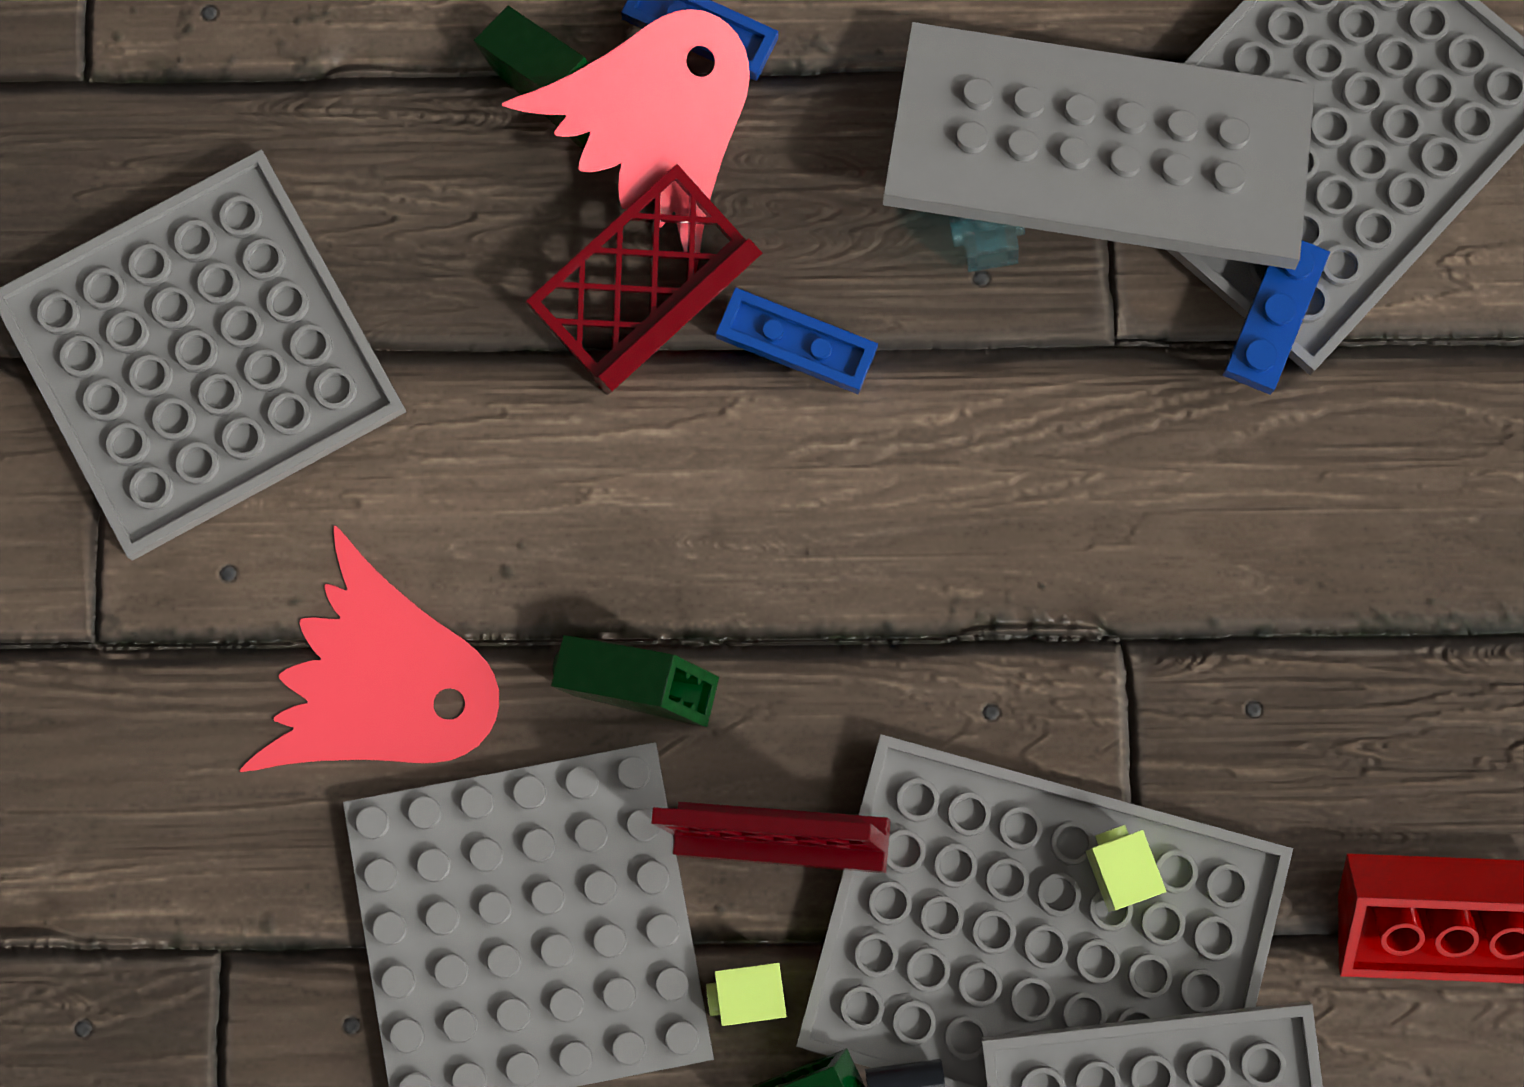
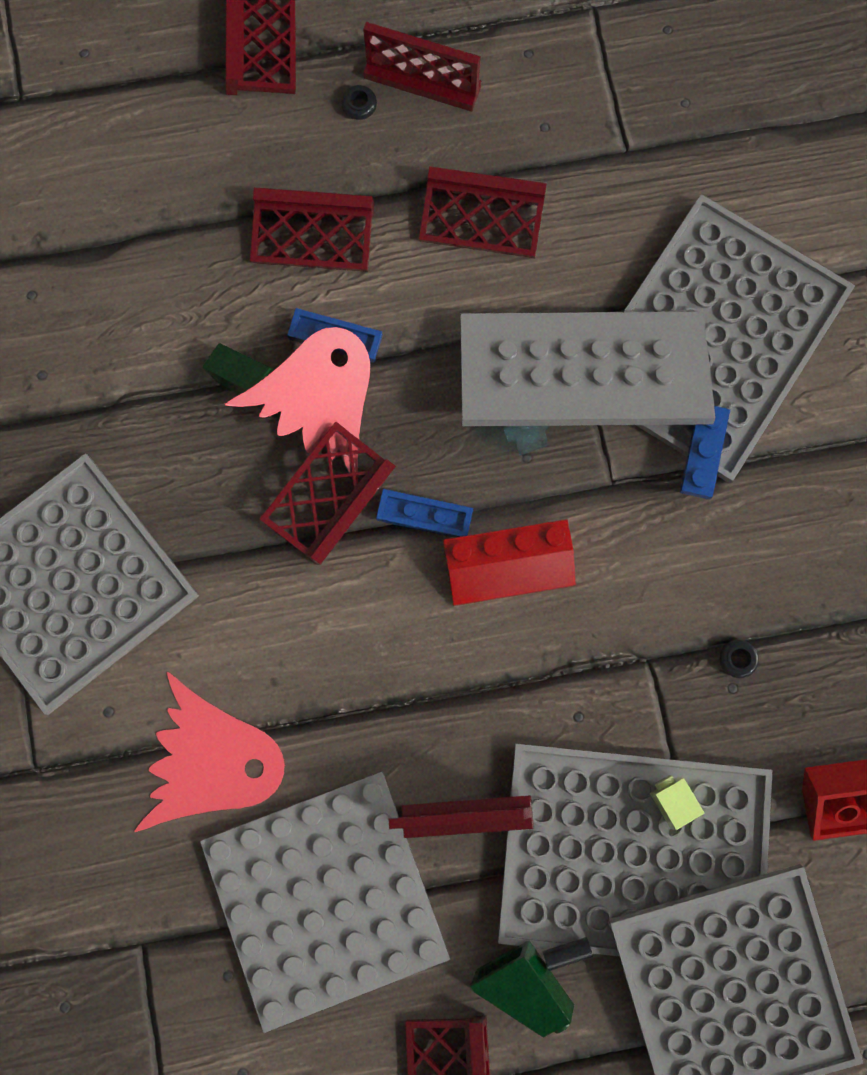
camera: 10 degrees left, 0 degrees up
(635, 679) = (363, 736): dark green slope -> none
(747, 994) = (463, 916): yellowish green brick -> none
(923, 441) = (510, 562): none -> red slope
(1257, 678) = (748, 649): none -> black piece

